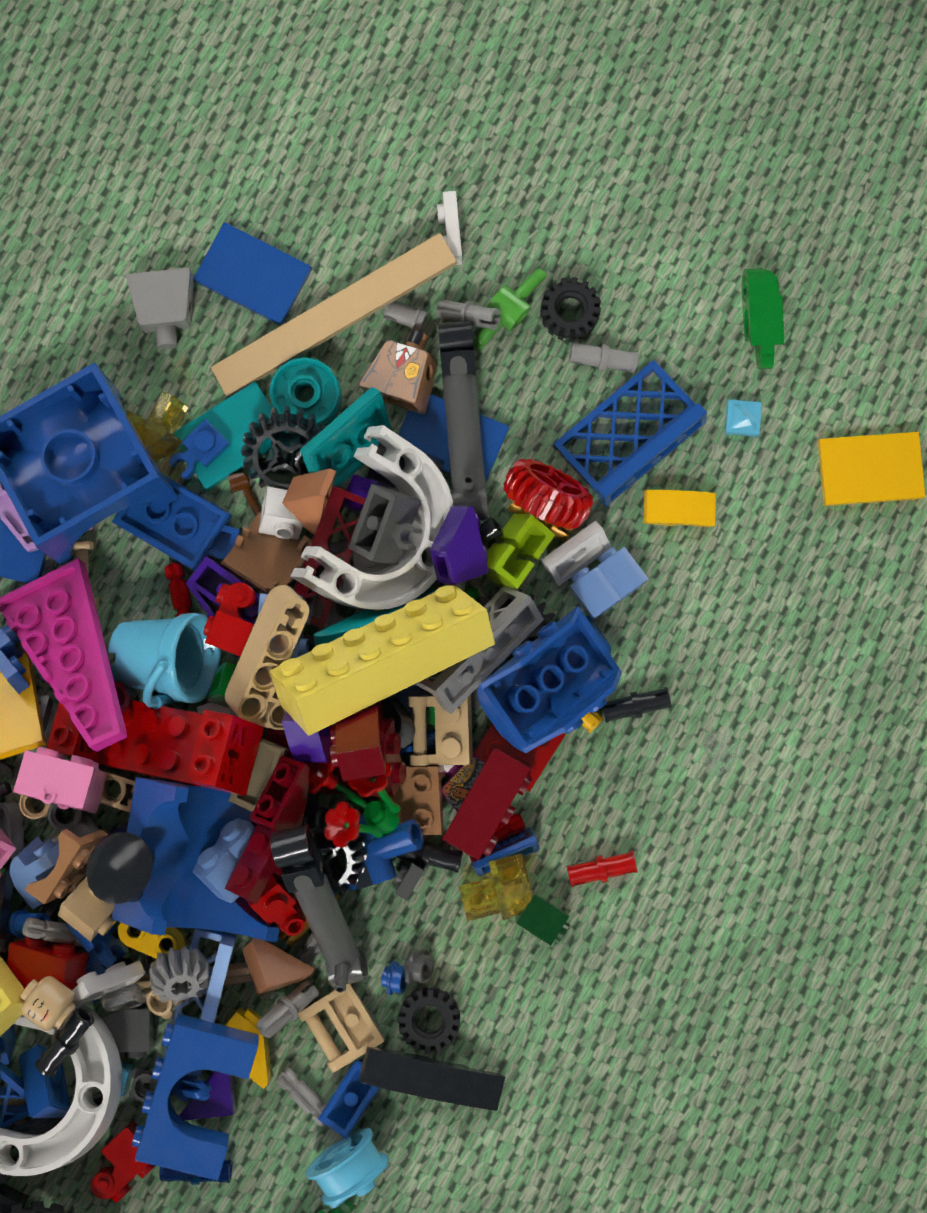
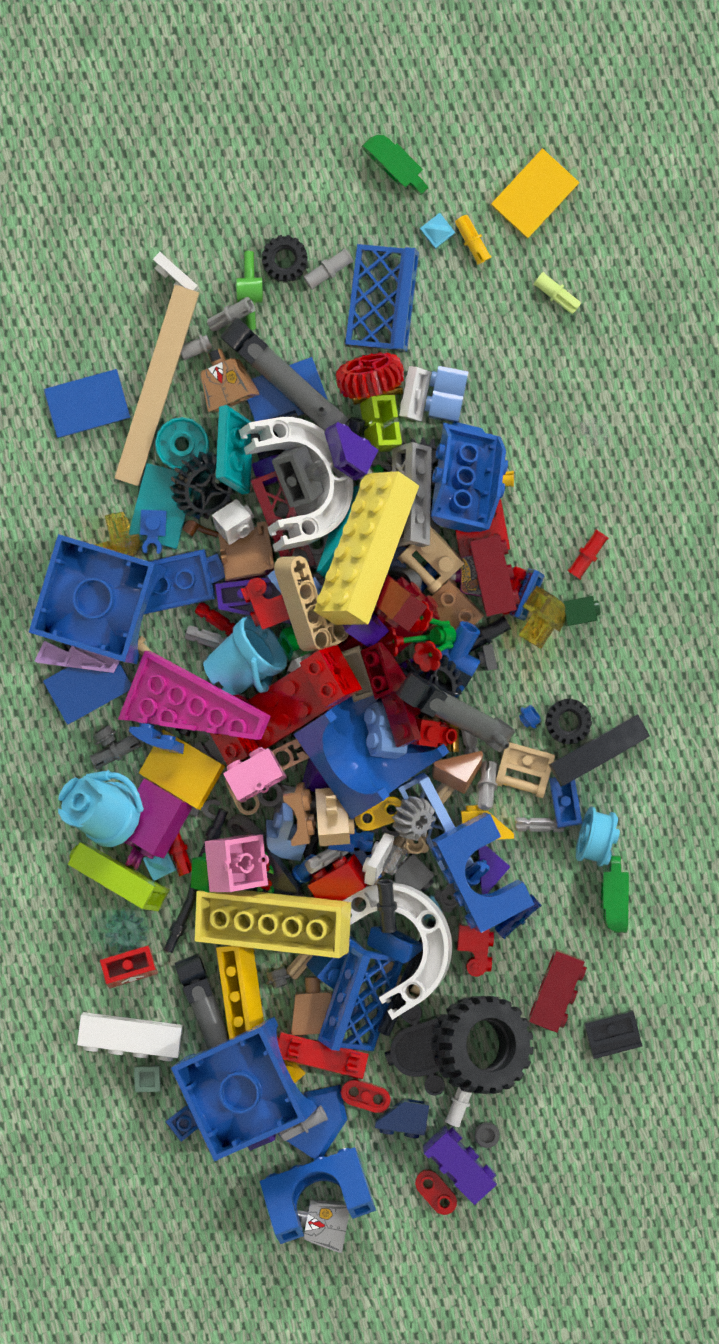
camera: 40 degrees left, 5 degrees up
(47, 1003) = (359, 892): tan head -> none
(120, 868) = (333, 785): black dish -> none
(150, 599) = (204, 637): none -> light grey axle
(163, 302) = (54, 466): light grey torso -> none
(309, 496) = (242, 499): nougat slope -> none
(418, 967) = (537, 699): dark grey plate -> none
(637, 704) = (525, 447): black pin -> none
(679, 508) = (448, 315): yellow slope -> none
(770, 457) = (472, 239): none -> yellow axle
(805, 584) = (557, 293): none -> yellowish green axle

